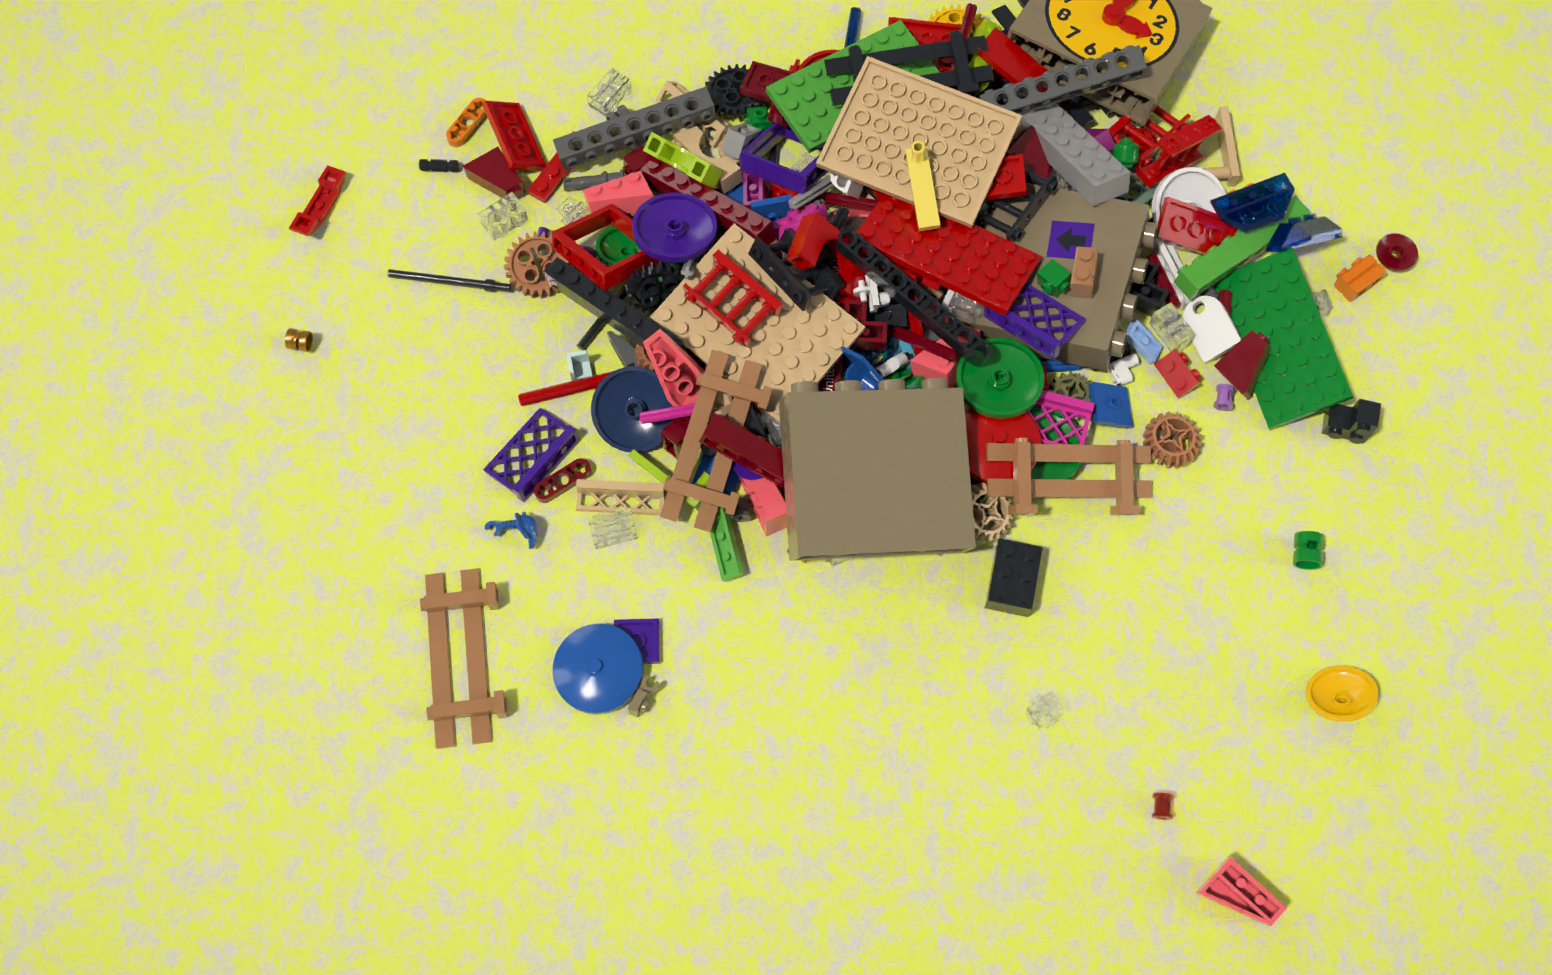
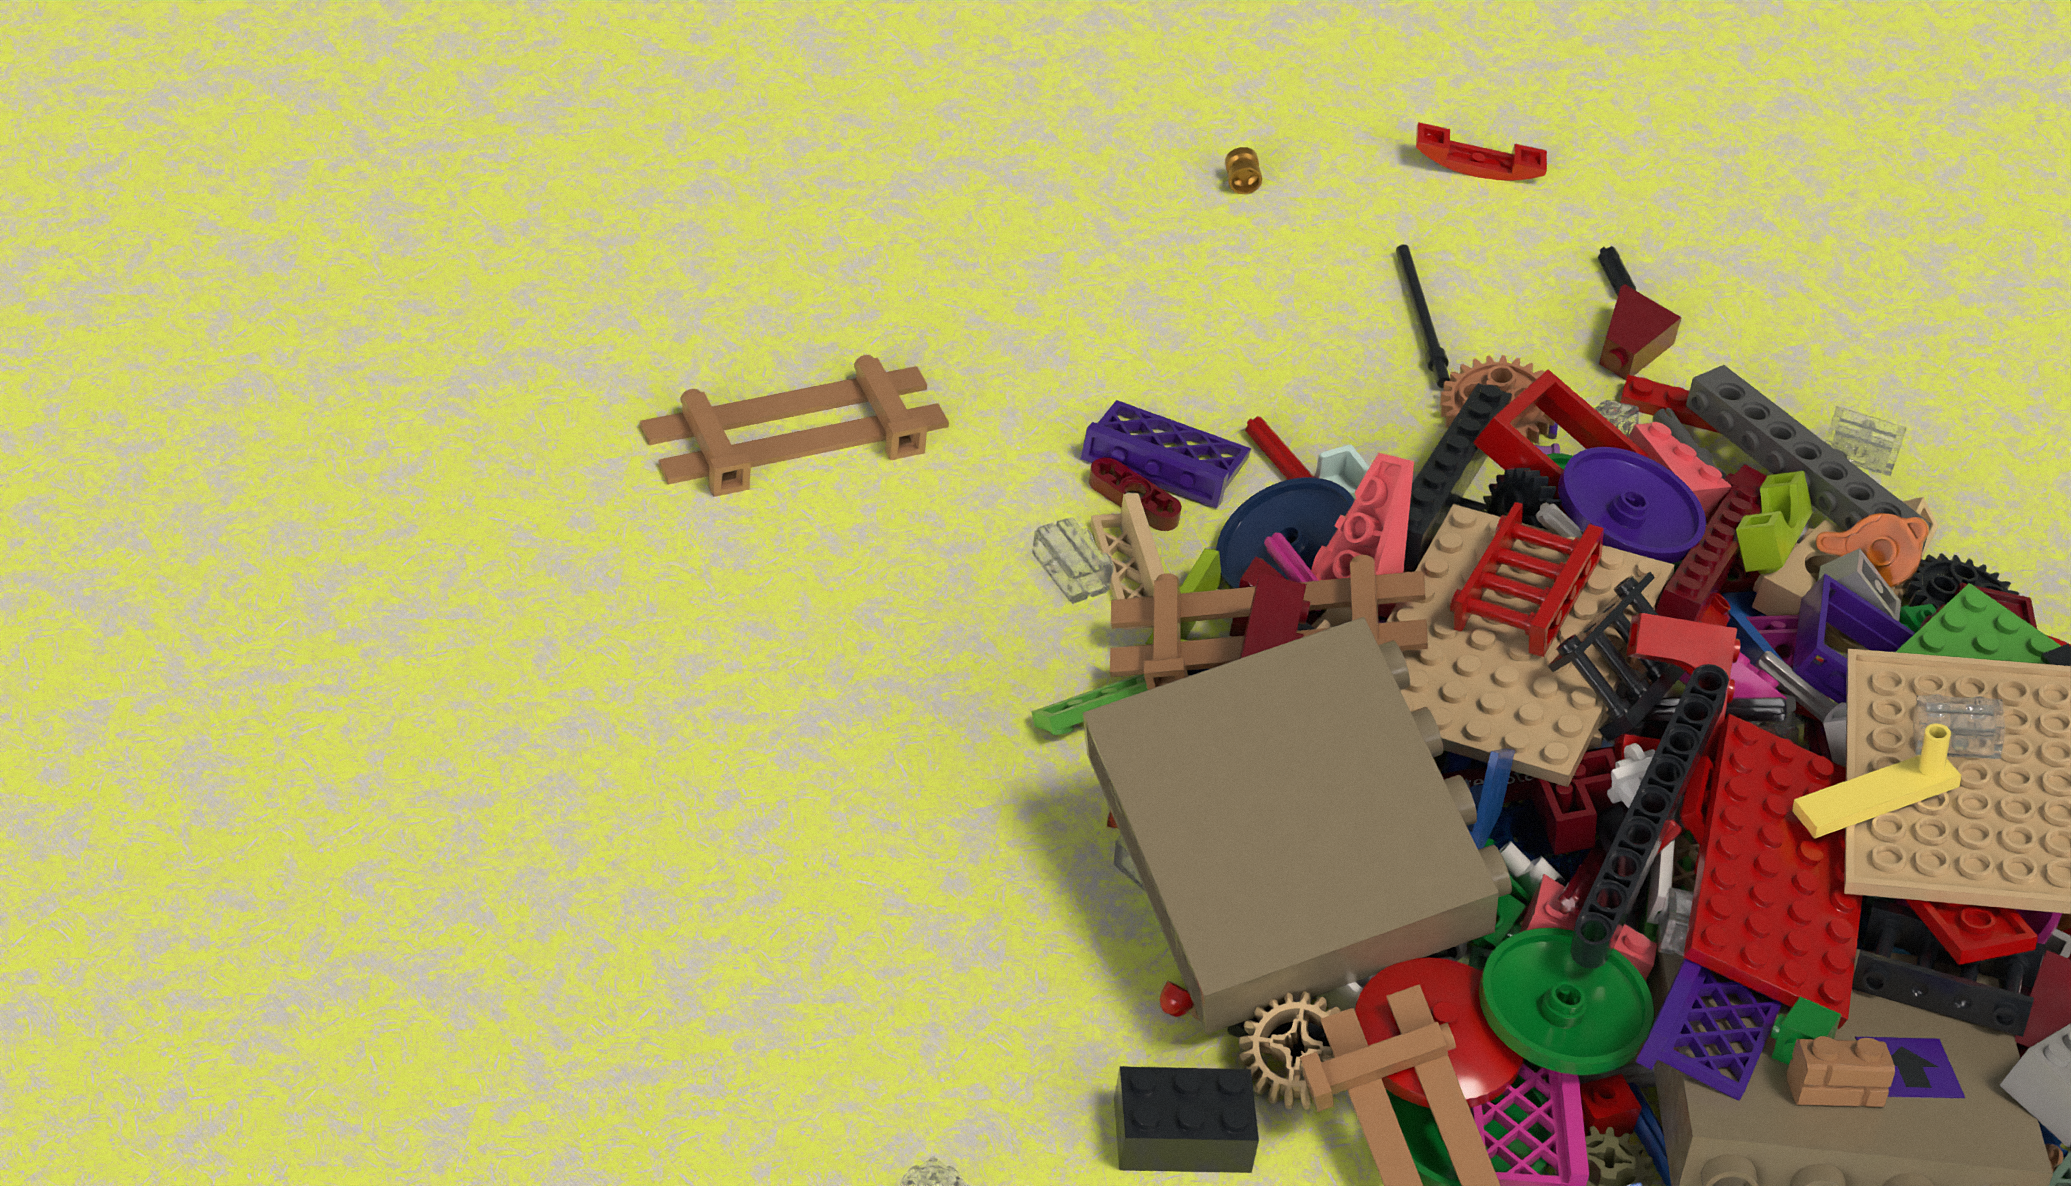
camera: 70 degrees right, 25 degrees down
(466, 131) = (1690, 286): orange beam -> none
(500, 213) = (1564, 351): clear brick -> none
(514, 135) = (1714, 335): red tile -> none
(524, 523) = (1036, 450): blue piece -> none
(598, 669) = (824, 579): blue dish -> none
(639, 702) = (786, 636): dark tan plate -> none
(646, 636) = (887, 624): dark purple tile -> none
(714, 119) = (1888, 542): none -> orange tile
(896, 134) = (1974, 724): none -> clear brick
(933, 561) = (1175, 1000): none -> red hinge

